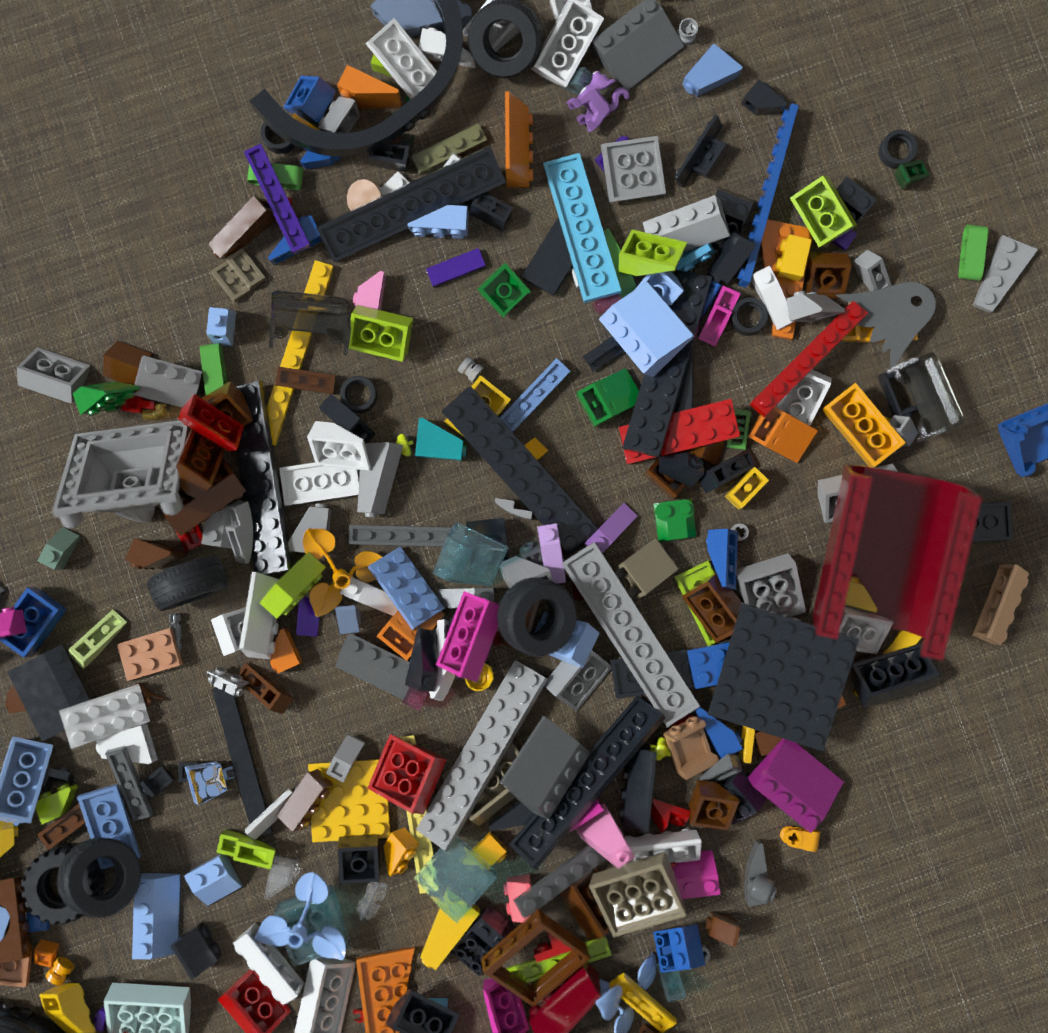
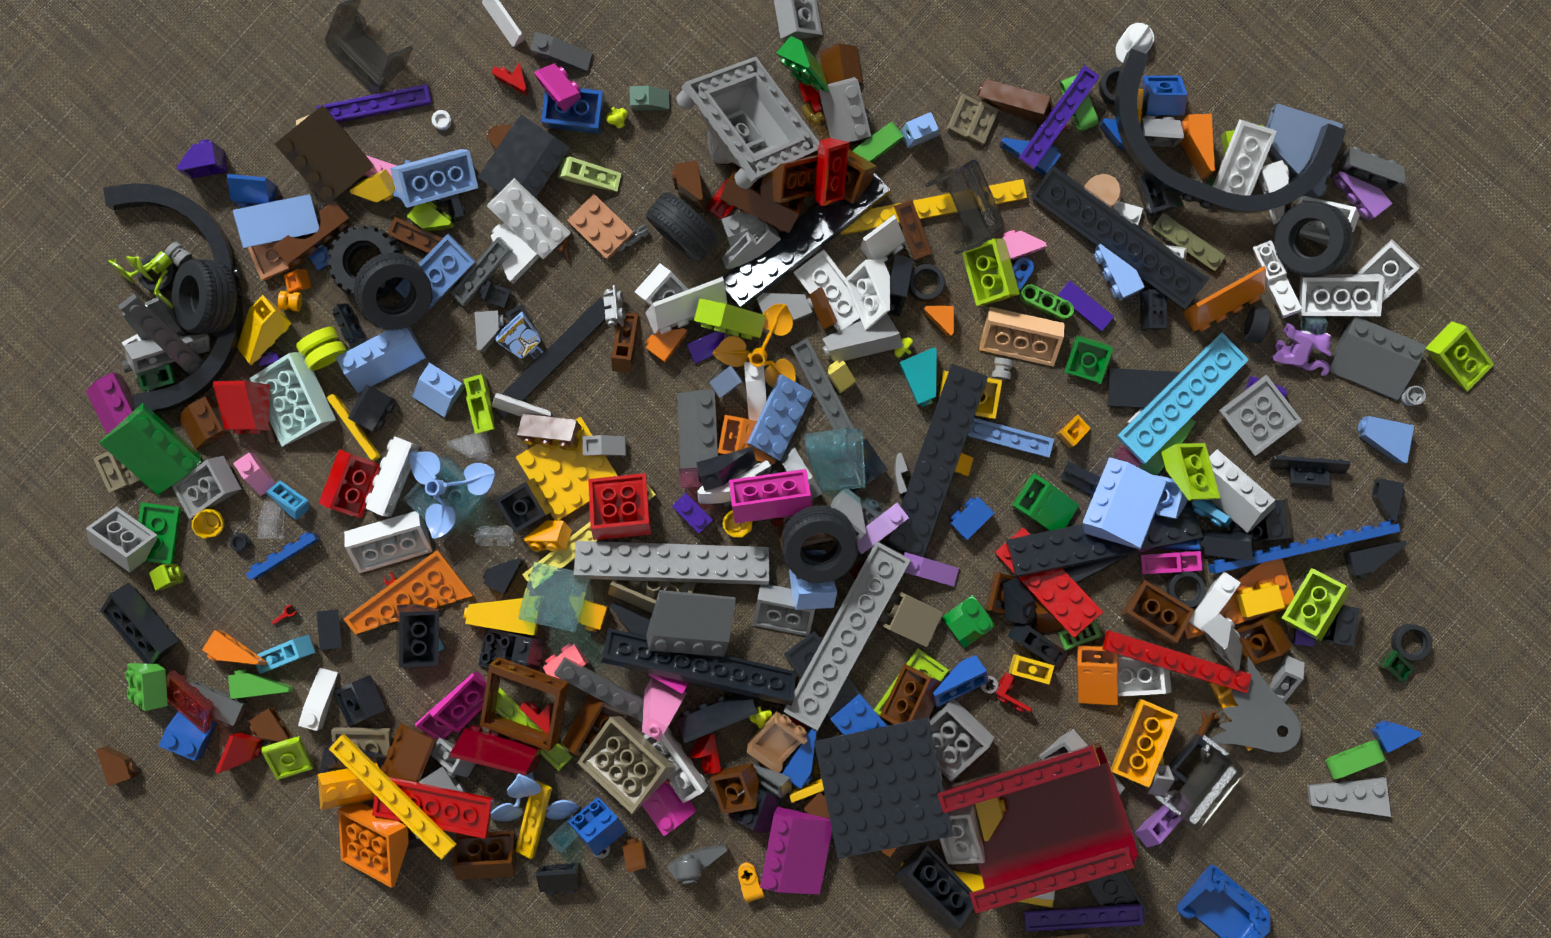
camera: 55 degrees right, 0 degrees up
(60, 586) = (617, 117): none -> neon yellow piece
(102, 926) = (345, 315): none -> black hinge
(116, 967) = (320, 348): none -> neon yellow wheel
(181, 804) = (487, 327): none -> light grey slope
(209, 974) = (355, 429): none -> yellow tile
(243, 93) = (1138, 37): none -> white piece
(299, 411) = (883, 240): none -> white slope
(330, 497) = (822, 308): none -> reddish brown slope
(396, 397) = (942, 317): none -> orange slope
(399, 308) = (1022, 276): none -> blue plate
(399, 514) = (840, 376): none -> light yellow slope
(411, 911) = (502, 575): none -> black slope
(437, 290) = (1056, 302): none -> bright green beam
(448, 711) = (692, 513): none -> dark purple brick
(452, 336) = (1022, 336): none -> light nougat slope
(527, 91) = (1276, 279): none -> white slope
(552, 128) = (1256, 324): none -> black tyre
(559, 338) = (1073, 431): none -> light orange slope
(586, 468) = (971, 518): none -> blue brick
(706, 1007) = (559, 878): none -> black slope
(747, 518) = (1006, 684): none -> red bracket
(757, 352) = (1157, 613): none -> reddish brown slope
(808, 144) = (1369, 559): none -> black slope
(873, 361) = (1206, 722): none -> reddish brown bar
(941, 454) = (1157, 827): none -> medium lavender slope
(970, 209) = (1393, 735): none -> blue slope
(986, 560) = (1083, 917): none -> dark purple tile

